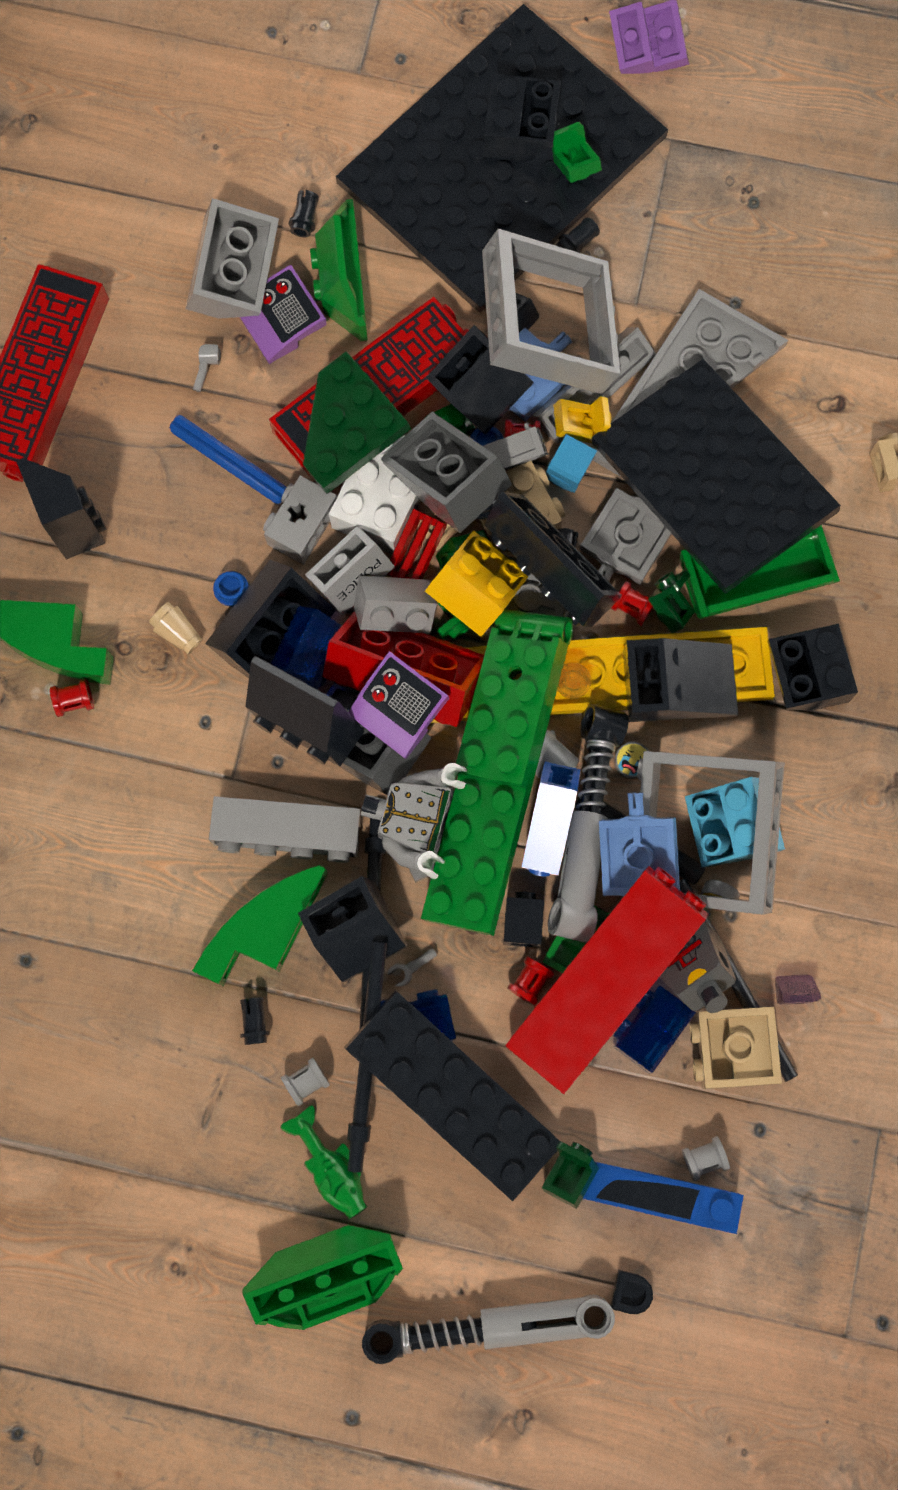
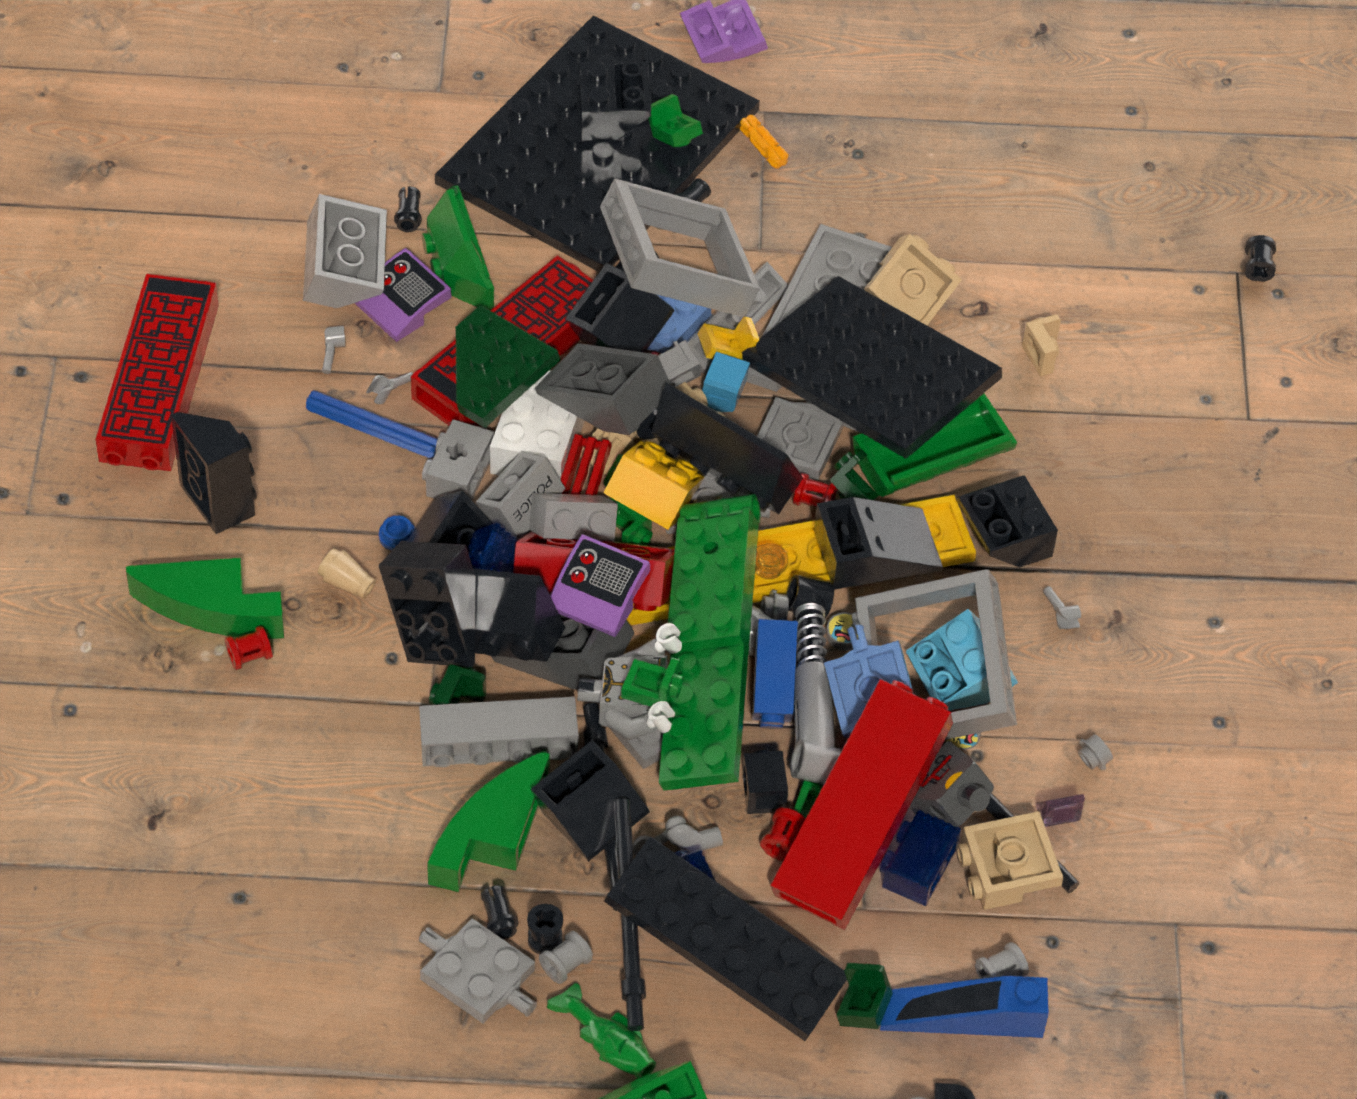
camera: 15 degrees left, 25 degrees down
(223, 1079) = (477, 971): none -> light grey plate
(239, 691) = (432, 601): none -> black slope
(244, 779) = (458, 683): none -> dark green bracket
(248, 418) = (384, 386): none -> light grey hand
(279, 1048) = (544, 927): none -> black bush
(428, 827) = (652, 683): none -> green bracket
(445, 972) = (689, 839): none -> light grey arm
(569, 728) = (775, 605): none -> light grey plate
(663, 178) = (764, 141): none -> light orange axle
(775, 376) = (914, 279): none -> tan plate
(842, 936) = (1095, 752): none -> light grey plate
(847, 777) = (1066, 616): none -> light grey hand

